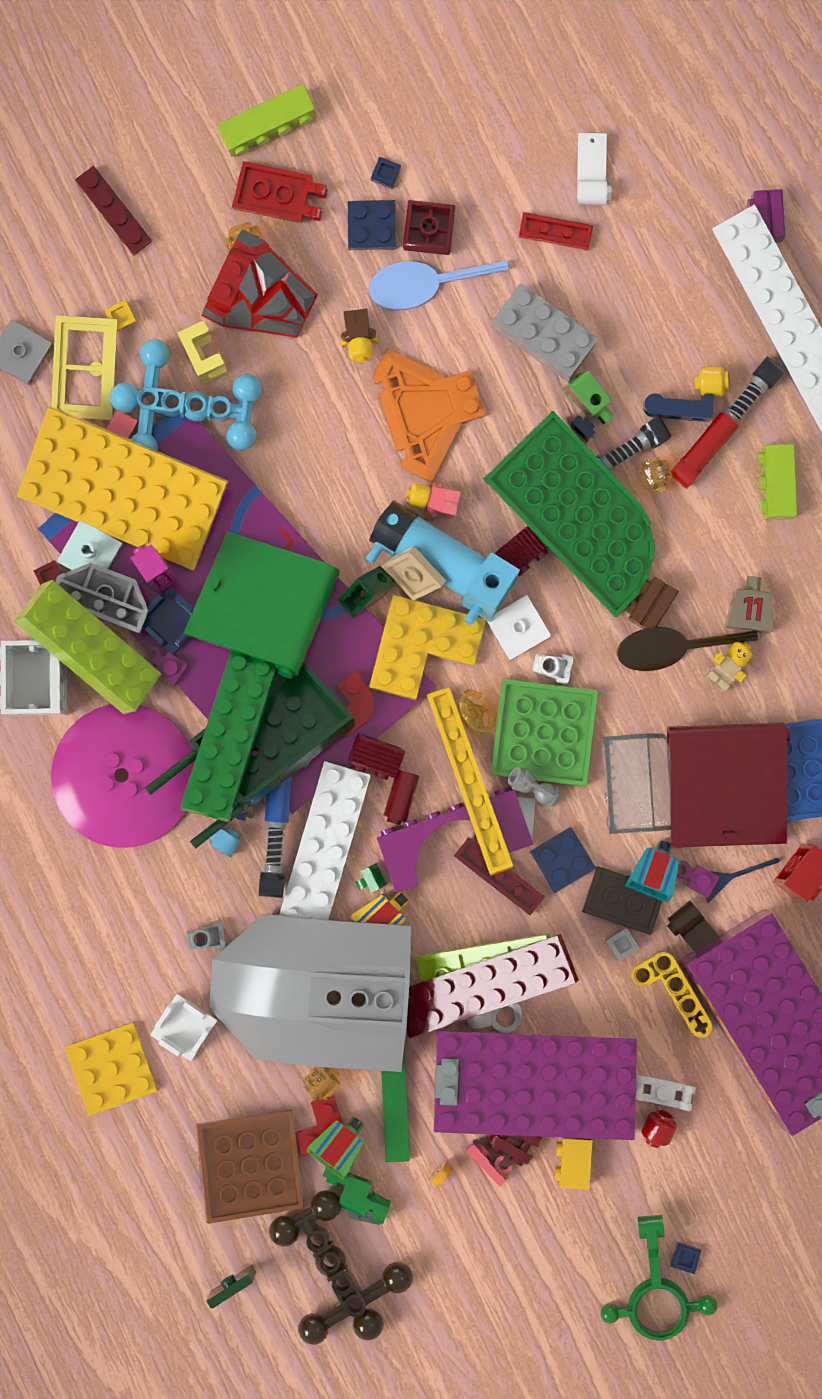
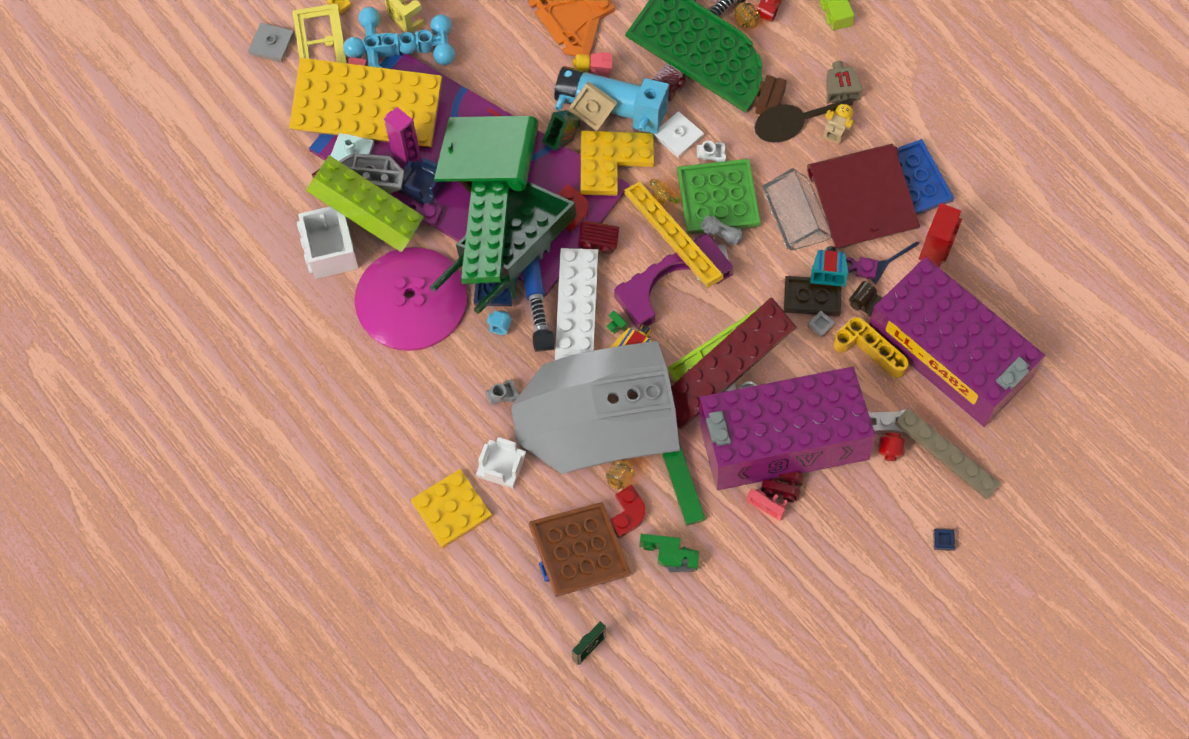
camera: 15 degrees left, 20 degrees down
(338, 1146) = (645, 514): torso -> none
(367, 1322) = (665, 662): dark brown piece -> none
(401, 797) = (624, 261): dark red brick -> none
(440, 1174) = (732, 521): light orange tile -> none
(505, 882) = (713, 299): dark red plate -> none
(562, 859) = (758, 278): dark blue plate -> none
(574, 1163) = (834, 487): yellow brick -> none
(651, 1228) = (910, 516): green piece -> none
(722, 1154) = (947, 453): none -> dark tan plate

